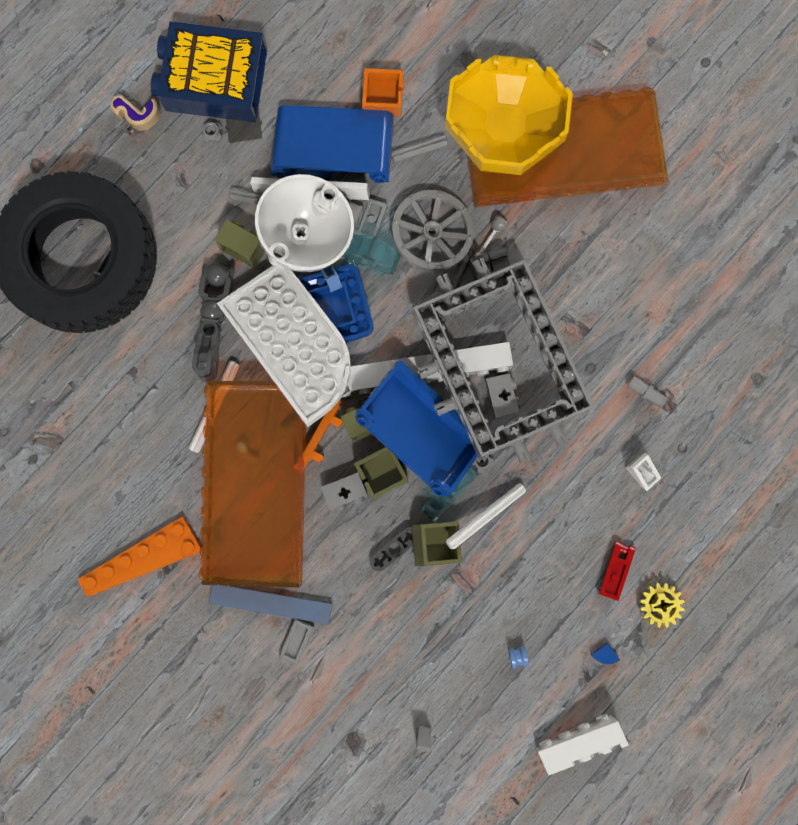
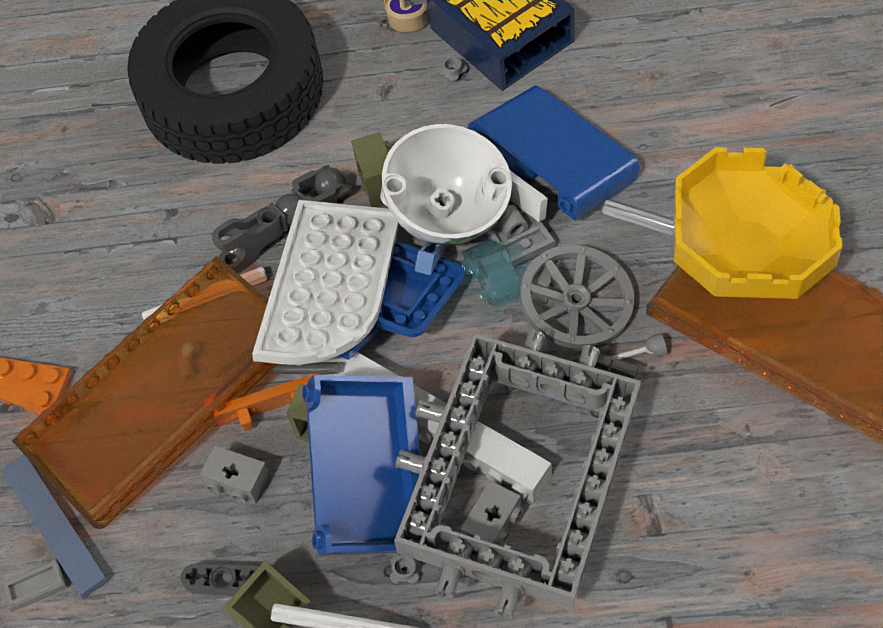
camera: 45 degrees right, 25 degrees down
(243, 130) = (484, 88): clear smoke piece -> none
(381, 472) = (289, 485): olive piece -> none
(383, 90) = (650, 138): orange piece -> none
(438, 505) = (319, 572): clear light blue slope -> none

